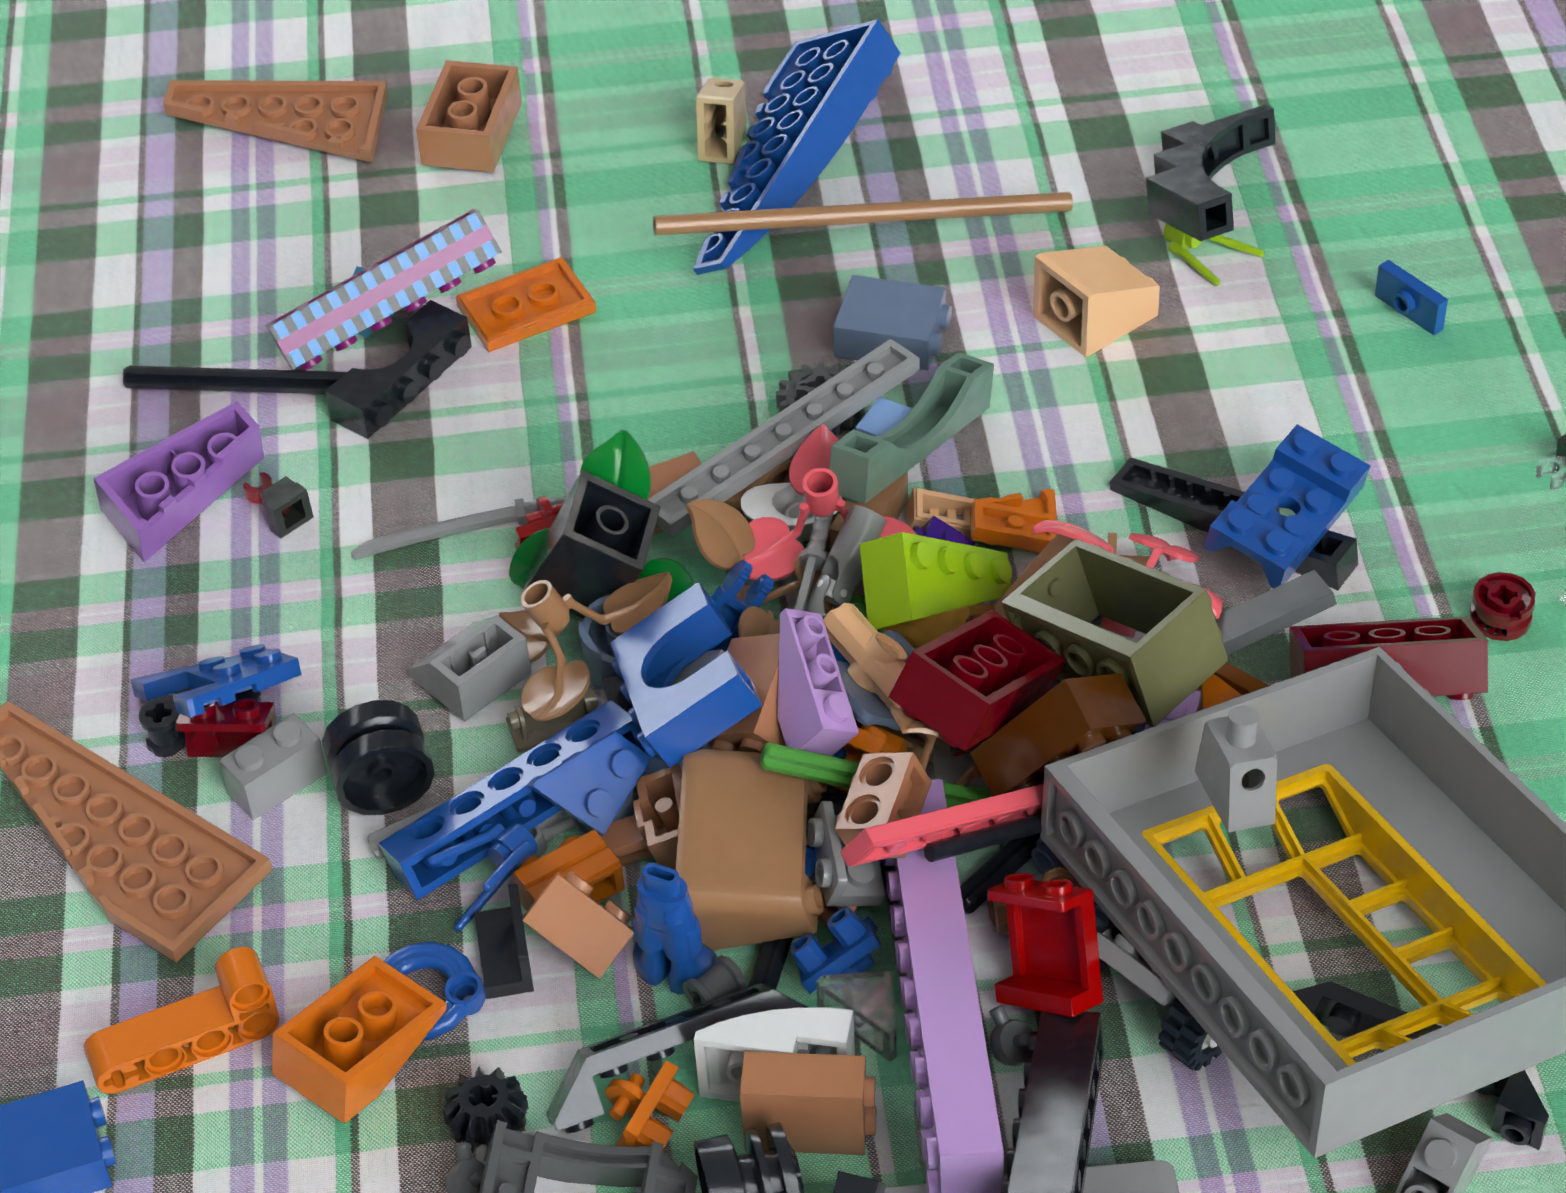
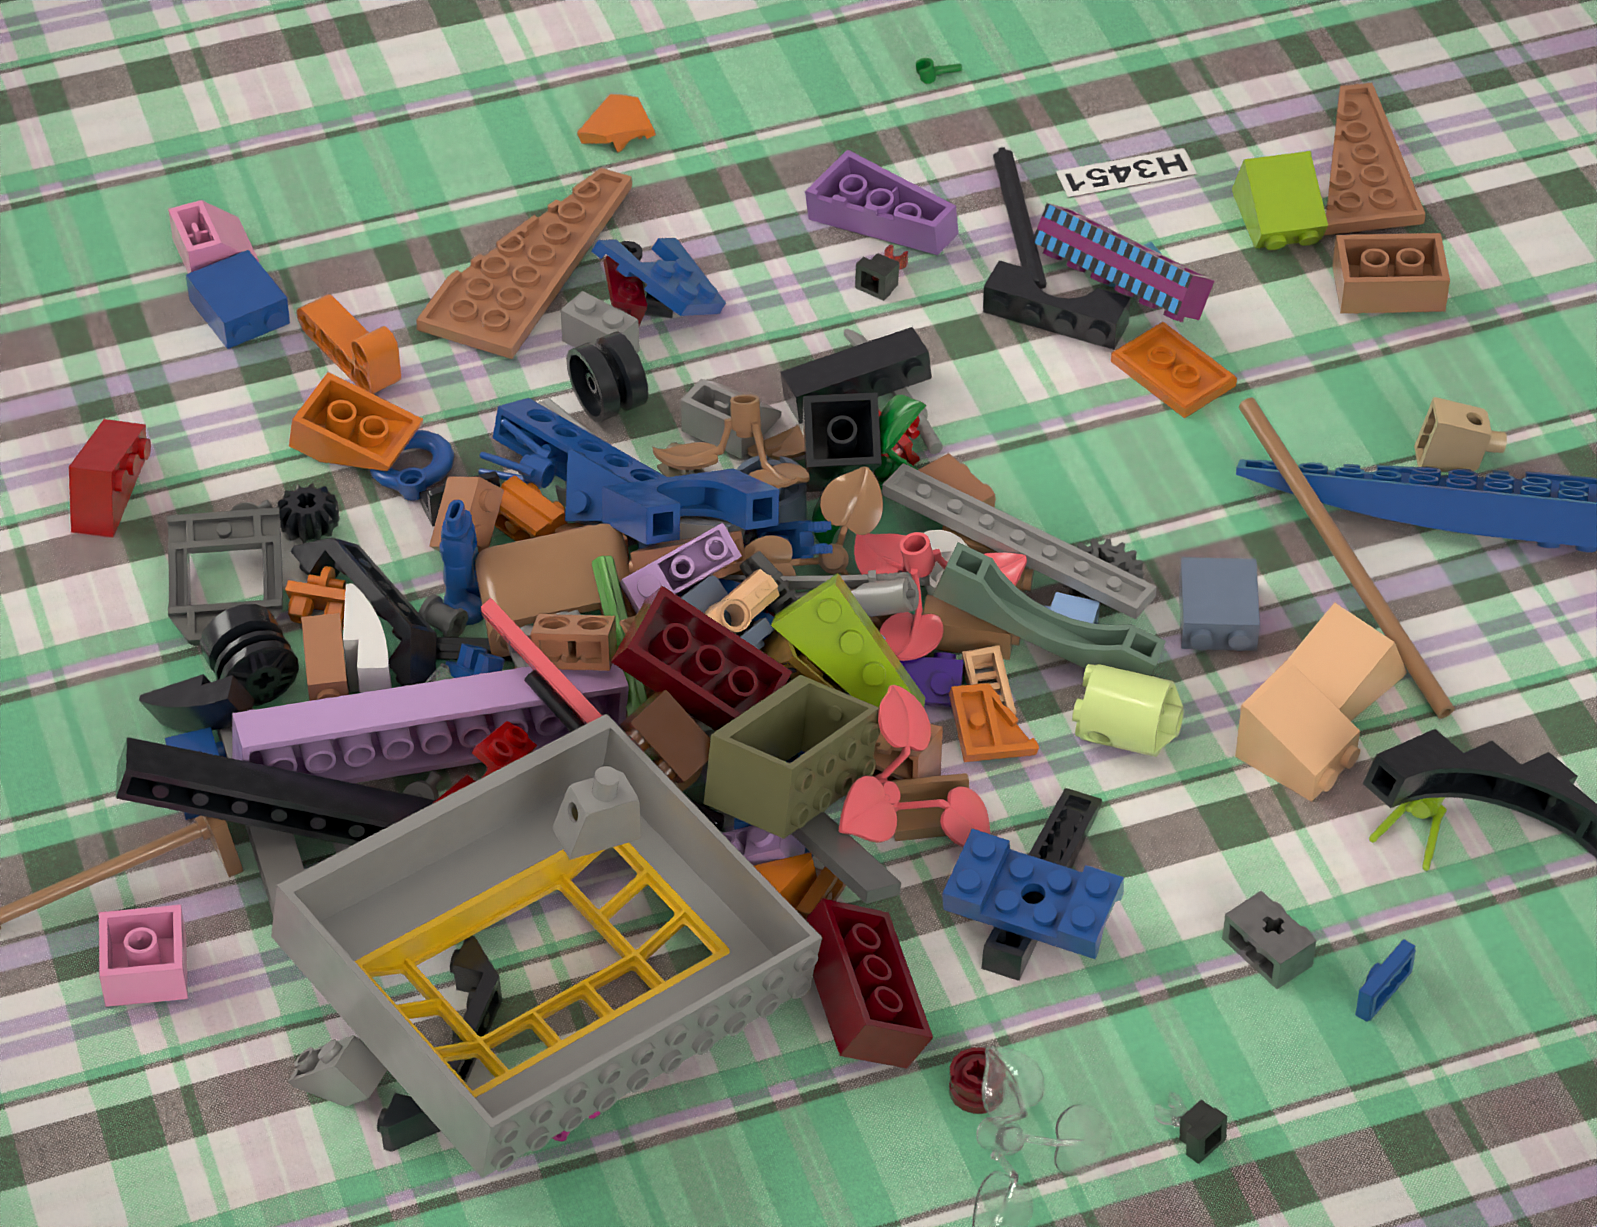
camera: 75 degrees right, 0 degrees up
(198, 292) = (1126, 172): none -> white sticker
(325, 173) = (1280, 200): none -> lime slope
(453, 543) = (867, 368): none -> black brick
(999, 244) = (1348, 661): none -> light nougat slope
(1037, 403) = (1127, 710): none -> yellowish green cylinder
(1348, 365) = (1269, 939): none -> flat silver brick

